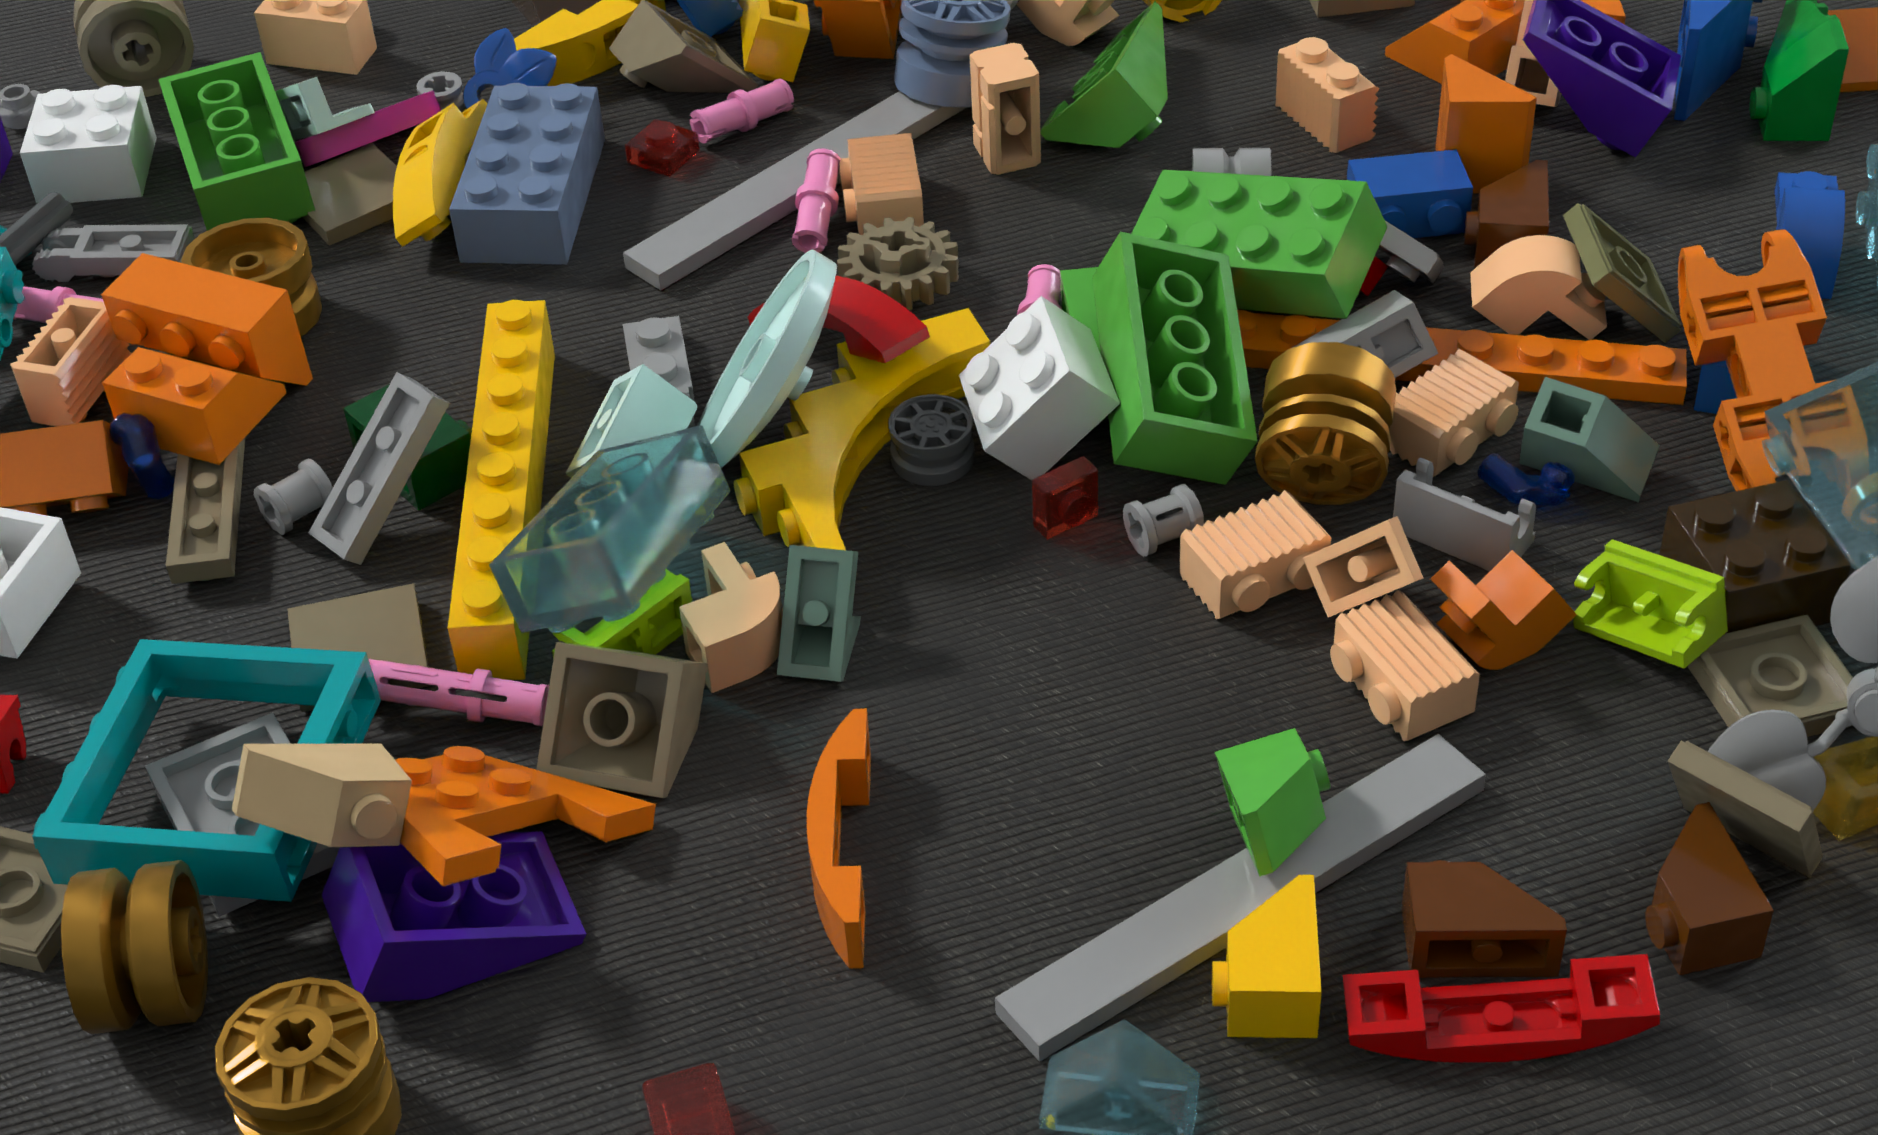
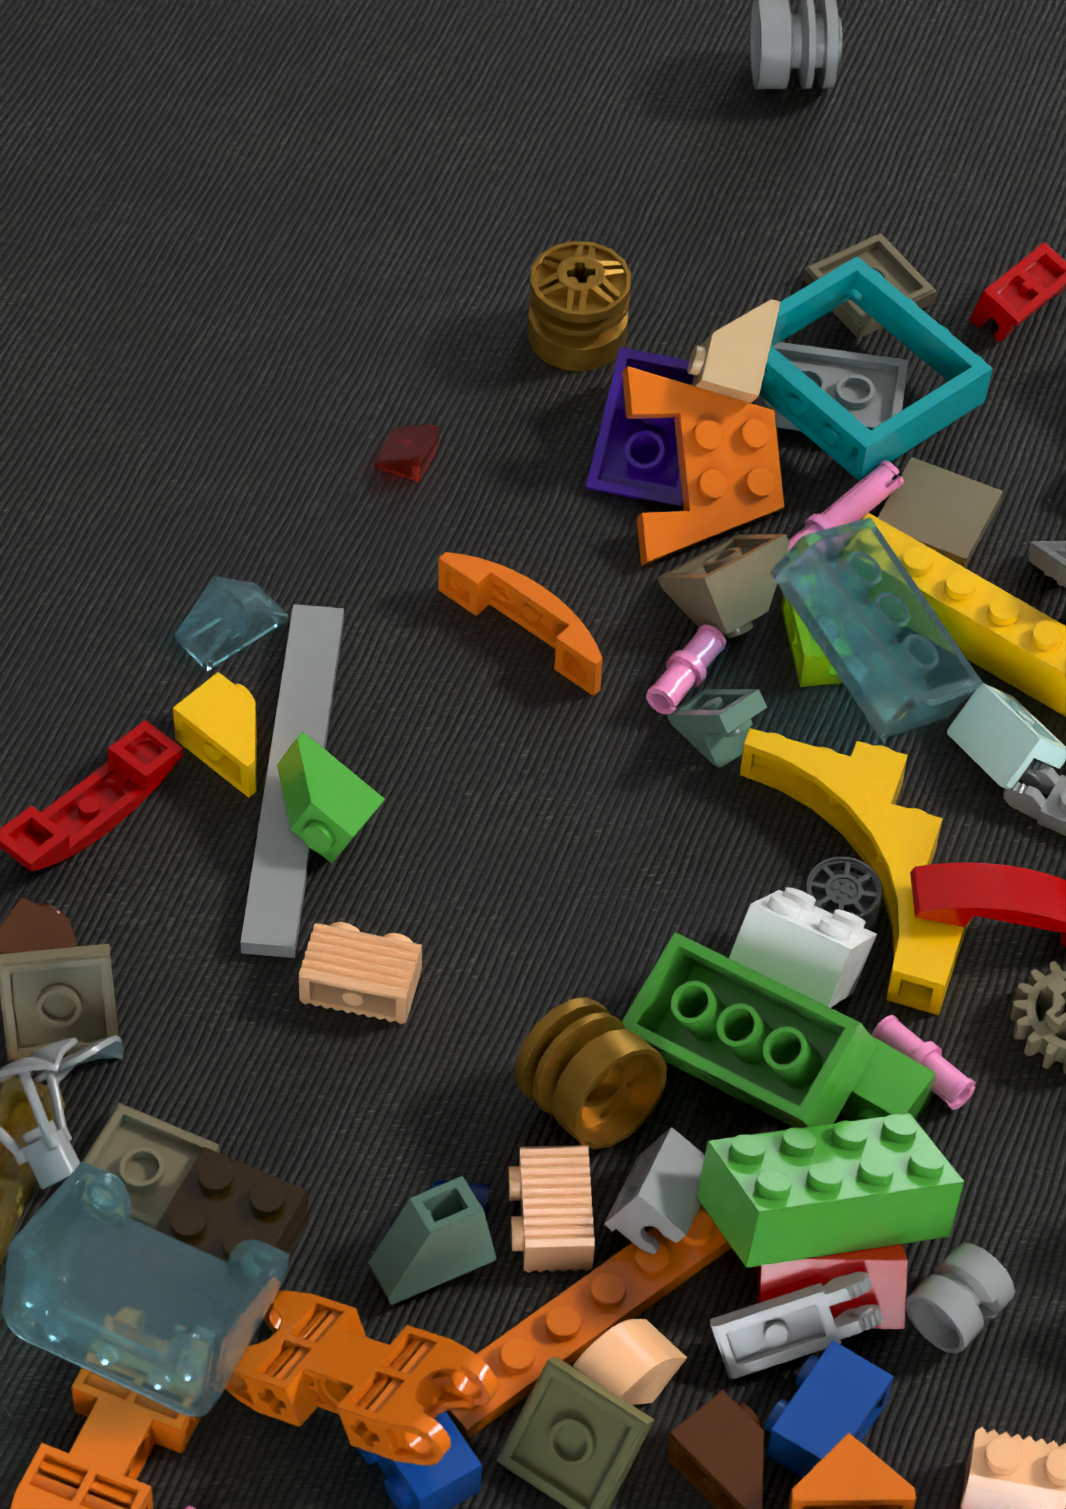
camera: 125 degrees right, 10 degrees up
(134, 947) = (738, 270): pearl gold wheel -> none
(736, 623) = (752, 663): light nougat brick -> none
(770, 357) = (957, 793): light aqua dish -> none
(774, 685) = (686, 669): none -> bright pink pin
(1065, 497) = (696, 918): clear red plate -> none
(1161, 519) = (625, 959): light grey bush -> none
(1251, 554) = (536, 974): light nougat brick -> none
(1363, 567) = (438, 993): light nougat slope -> none
(1457, 522) = (450, 1123): light grey hinge -> none
(1477, 924) = (149, 837): reddish brown slope -> none
(1503, 615) = (344, 1045): orange brick -> none
(1652, 604) = (262, 1140): lime hinge -> none

